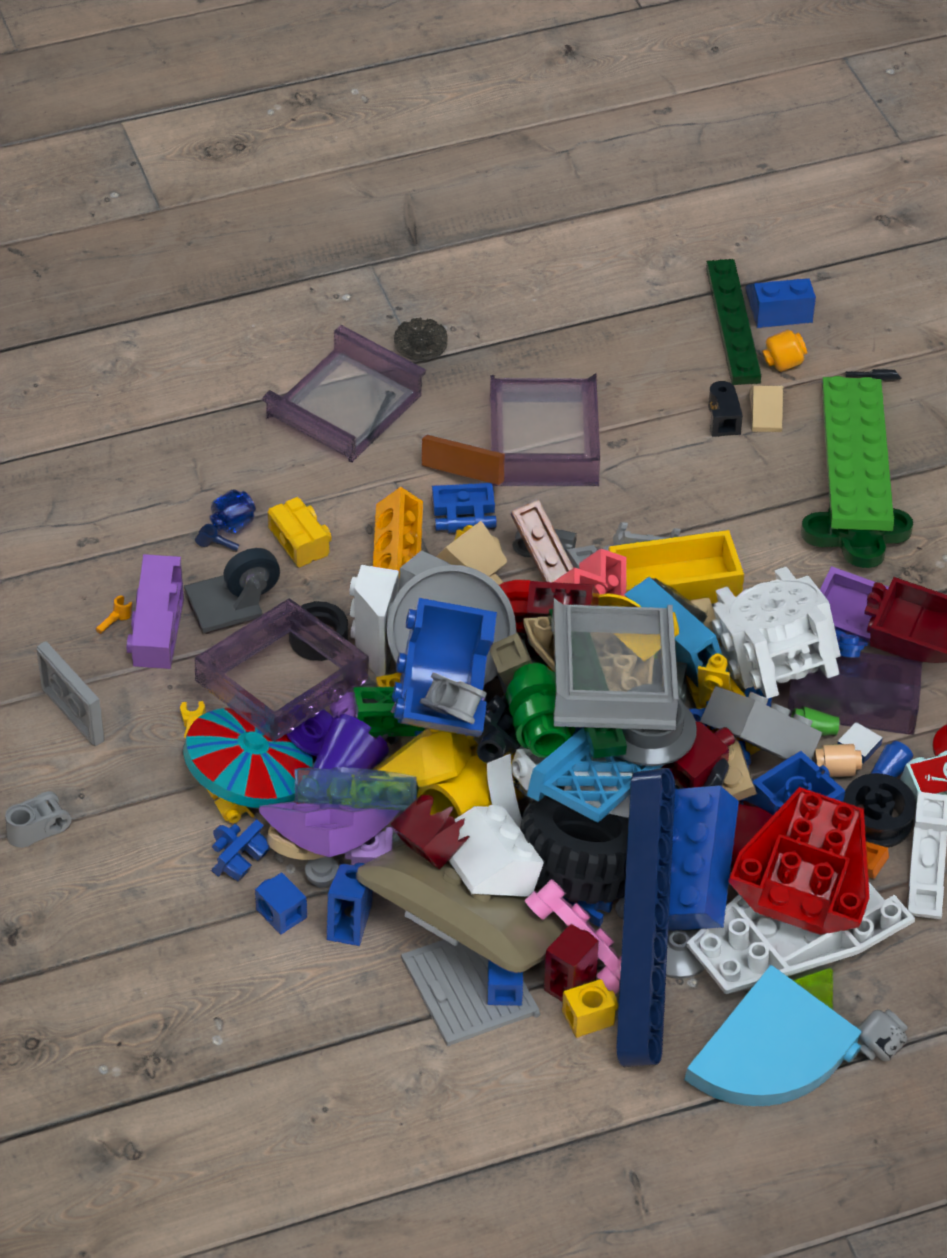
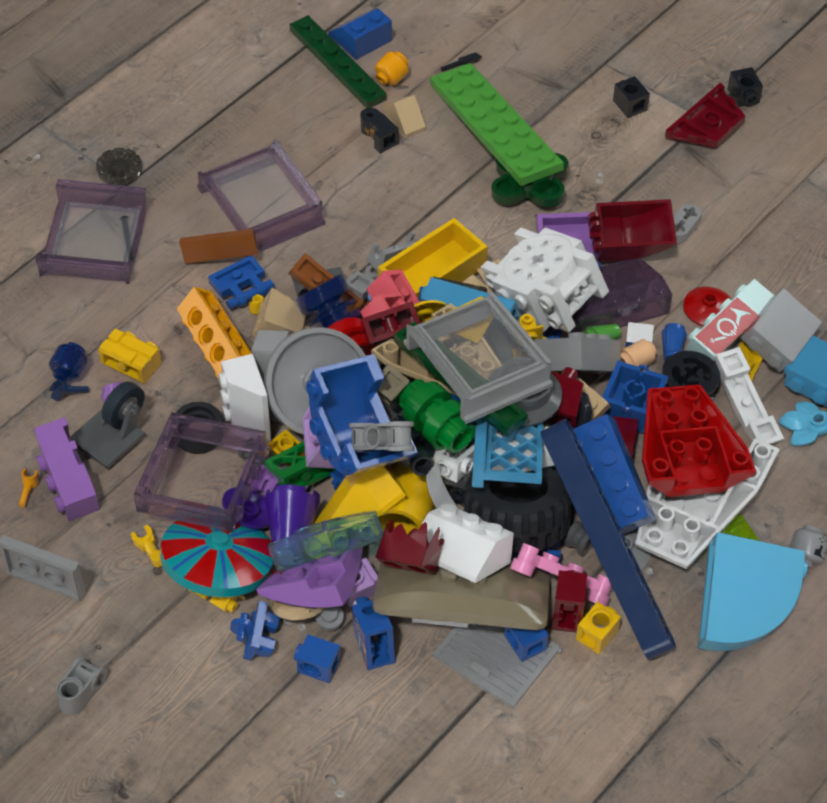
camera: 30 degrees left, 5 degrees up
(526, 556) = (327, 302): none -> clear blue wheel

